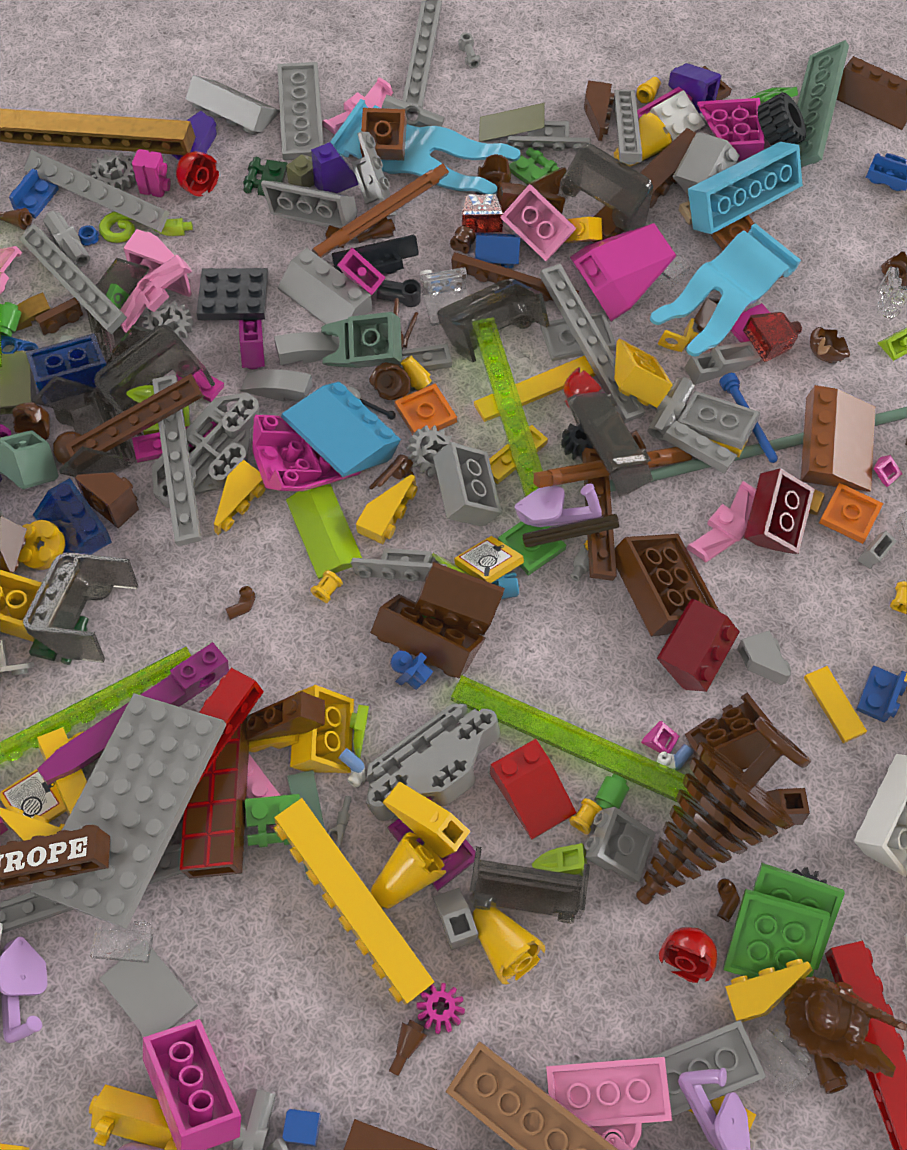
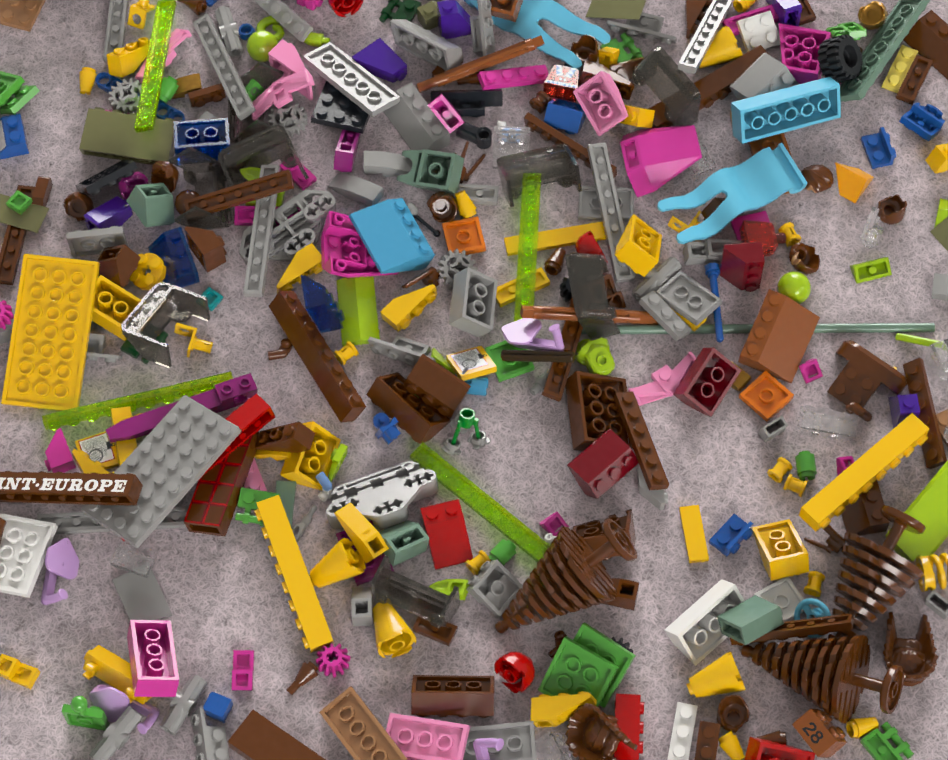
camera: 20 degrees right, 0 degrees up
(110, 244) = (260, 44): none -> lime piece
(128, 621) = (195, 343): none -> yellow bracket
(136, 557) = (213, 298): none -> teal tile
(233, 260) = (351, 79): none -> light grey plate
(261, 235) = (381, 61): none -> dark purple slope
(281, 532) = (321, 306): none -> clear blue slope
(293, 599) = (317, 356): none -> reddish brown brick
(320, 1060) = (243, 670): none -> dark pink slope
(422, 219) = (513, 77): none -> dark pink plate
(483, 811) = (404, 541): none -> sand green slope
(504, 635) = (462, 422): none -> plant
(522, 174) = (608, 56): none -> yellow slope
(545, 415) = (555, 262): none -> reddish brown cone
(550, 927) = (443, 634): none -> reddish brown plate
(618, 1012) = (452, 695): none -> reddish brown slope
(637, 514) = (595, 356): none -> lime head
(734, 605) = (641, 441): none -> reddish brown plate
(771, 365) = (743, 265): none -> dark red slope
(791, 74) = (872, 15): none -> pearl gold hair
(806, 325) = (791, 235): none -> yellow bush
(809, 253) = (818, 178): none -> reddish brown hair
(833, 375) = (795, 286): none -> lime piece
(841, 126) = (899, 68): none -> light yellow plate
(843, 252) = (852, 181): none -> light orange slope
(856, 210) = (878, 149): none -> blue bracket
(861, 132) = (914, 79): none -> reddish brown plate

